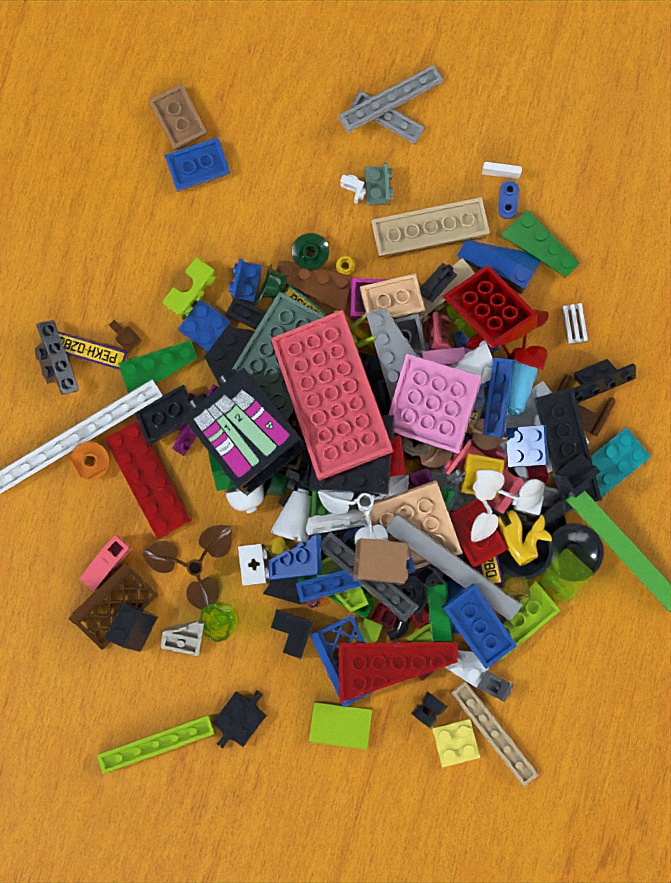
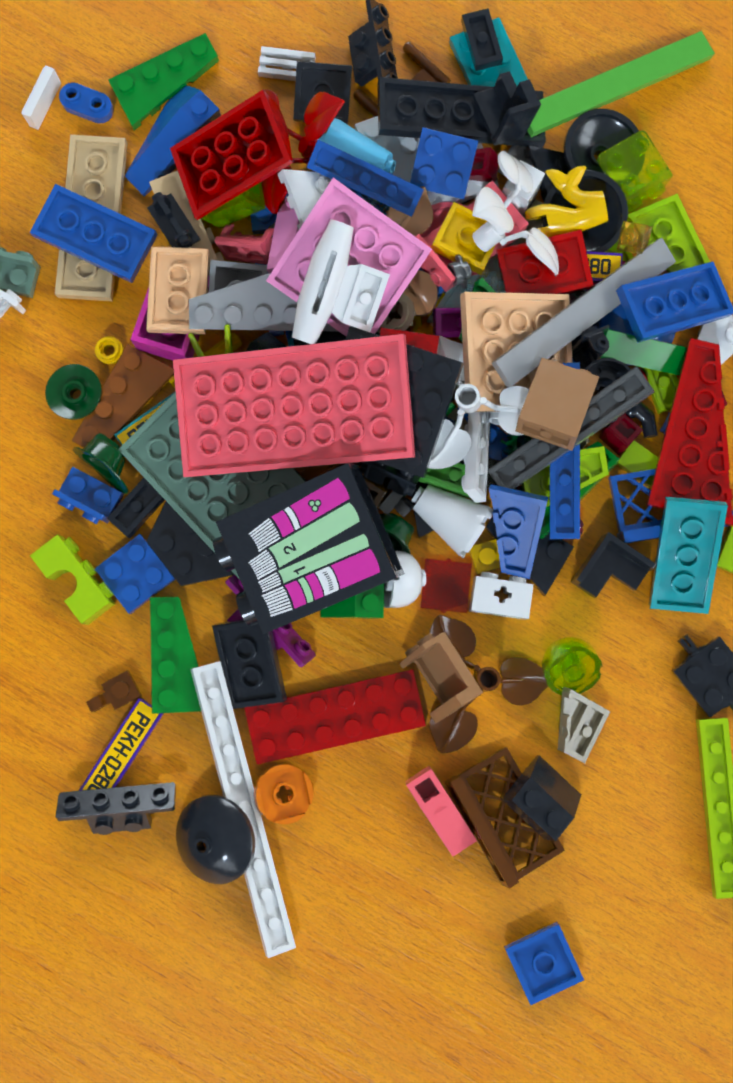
camera: 75 degrees left, 0 degrees up
(27, 654) = (544, 963): none -> blue plate
(53, 432) = (225, 833): none -> black dish
(192, 541) = (444, 673): none -> medium nougat panel
(251, 527) = (446, 585): none -> clear red piece
(312, 678) = (687, 554): none -> teal plate
(413, 398) = (335, 288): none -> white plate
(417, 233) = (93, 233): none -> blue plate
(562, 353) = (322, 77): none -> black plate
(627, 449) = (482, 39): none -> black plate

